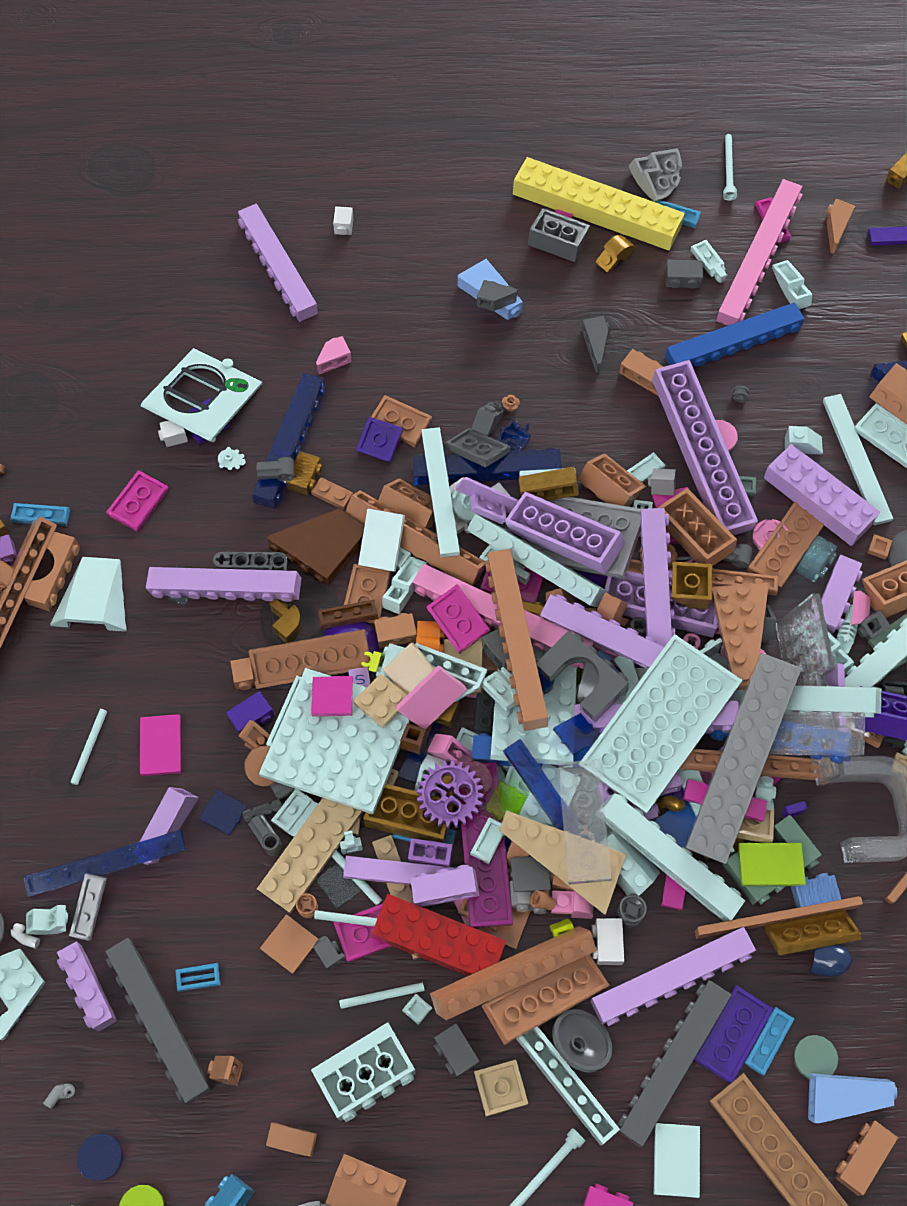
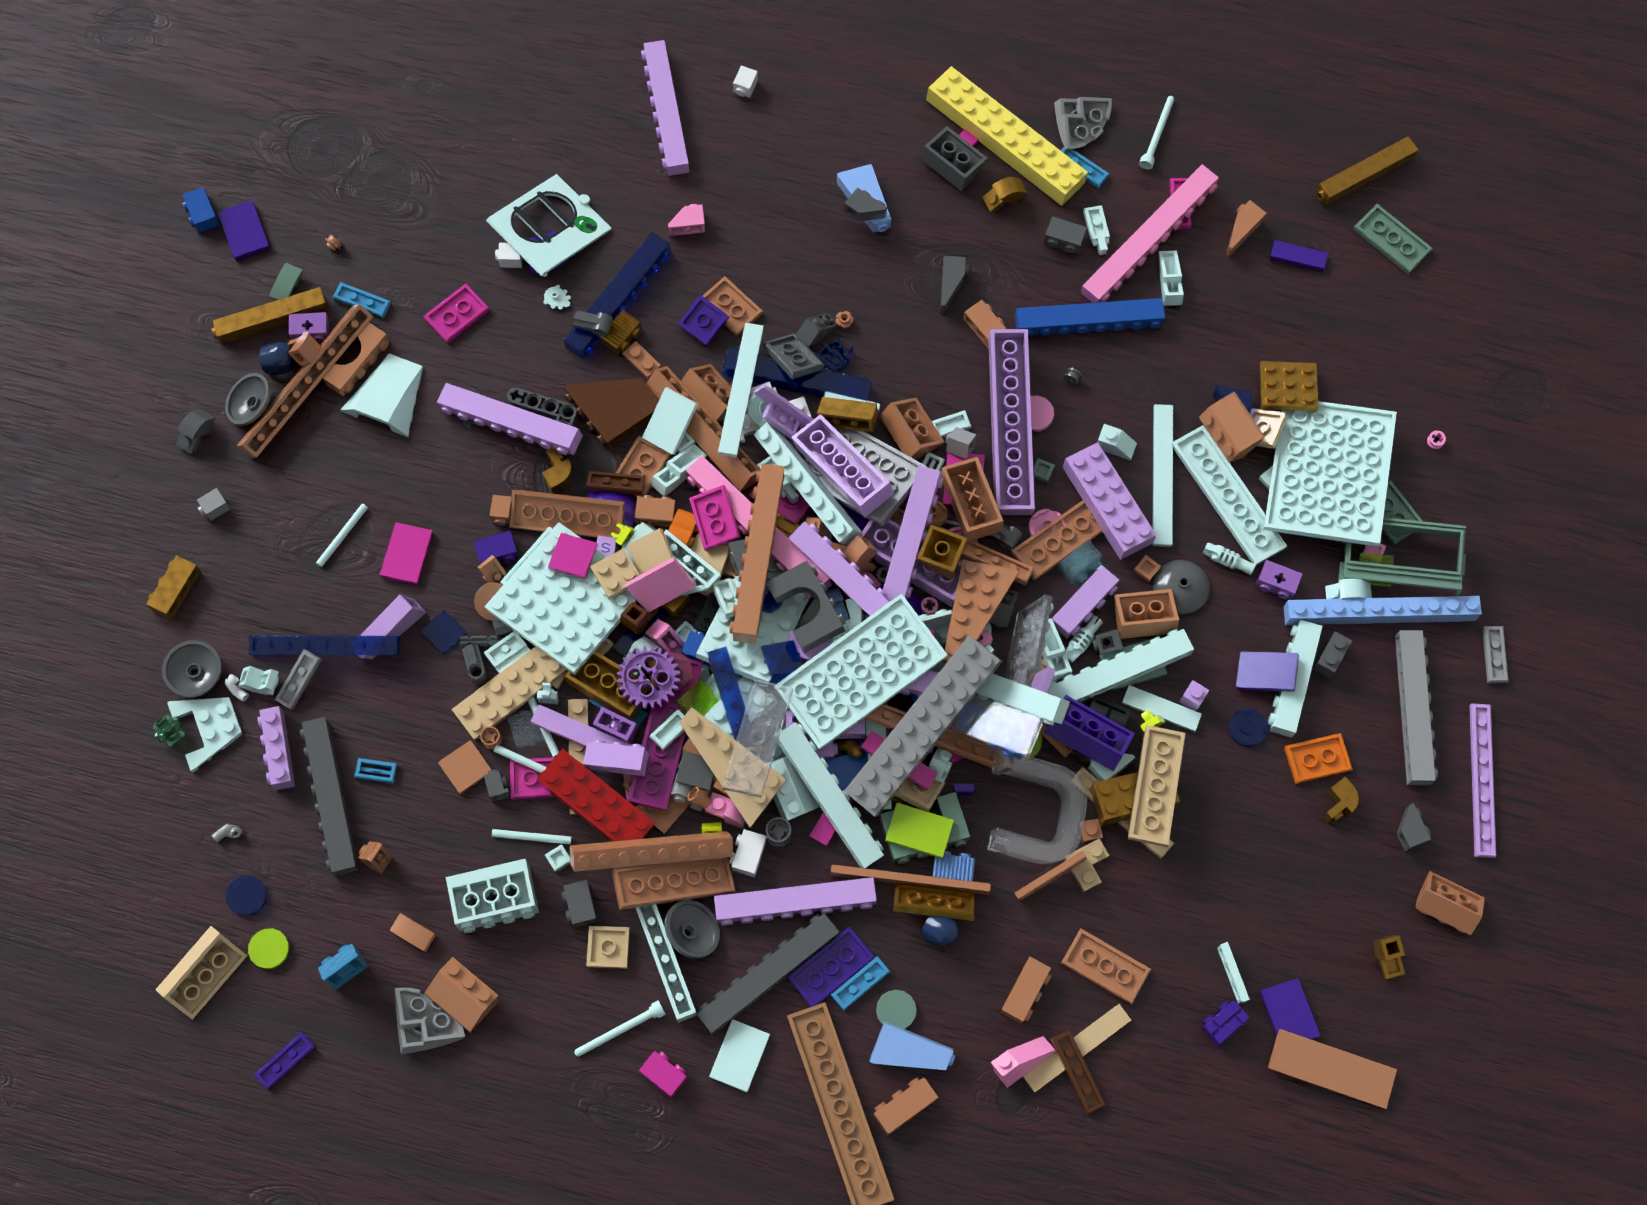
camera: 15 degrees right, 5 degrees up
(861, 607) = (1101, 621): bright pink tile -> none

